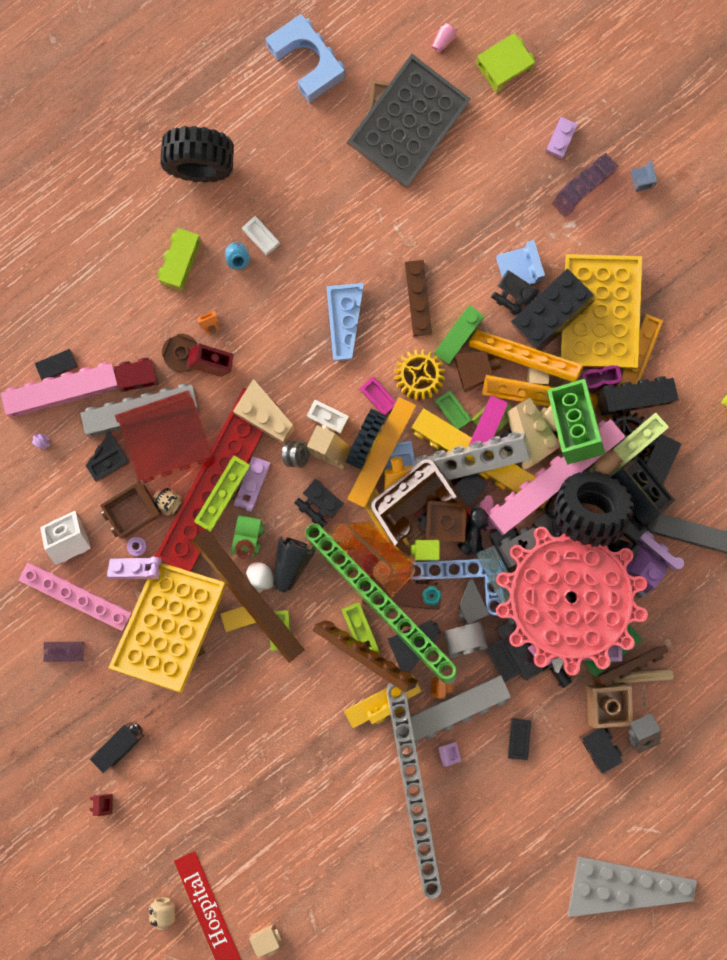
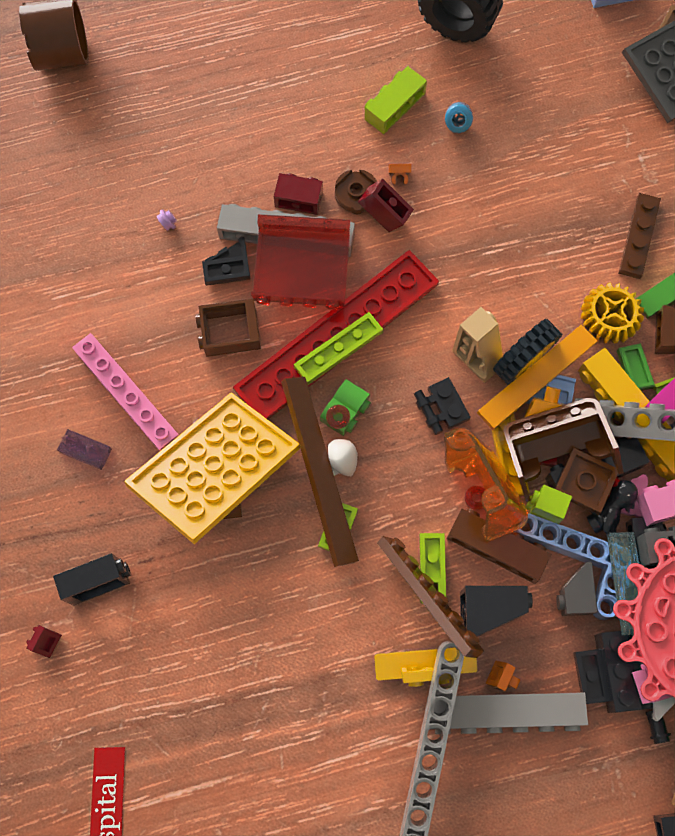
camera: 20 degrees right, 10 degrees down
(56, 364) = (218, 153): black tile -> none
(60, 390) = (210, 177): bright pink brick -> none
(64, 538) = (143, 328): white slope -> none
(134, 568) = (204, 390): lavender plate -> none
(142, 548) = (217, 375): lavender plate -> none
(162, 913) = (50, 807): tan head -> none
(167, 501) = (273, 334): tan head -> none
(236, 619) = (295, 495): yellow tile -> none
(252, 484) = (375, 355): lavender plate -> none
(260, 236) = (490, 111): white tile -> none
(263, 413) = (421, 282): tan wedge -> none
(290, 562) = (382, 456): black cone -> none
(295, 454) = (438, 339): flat silver wheel -> none
(327, 416) = (483, 301): white plate -> none
(344, 311) = (550, 219): light blue wing -> none
(378, 396) = (554, 311): dark pink tile -> none
(384, 609) = (476, 548): bright green beam -> none
(426, 595) = (540, 555): teal plate -> none
(449, 754) = (482, 764): lavender plate -> none
(465, 639) = (557, 630): light grey brick -> none
(519, 739) = (576, 784): black tile -> none

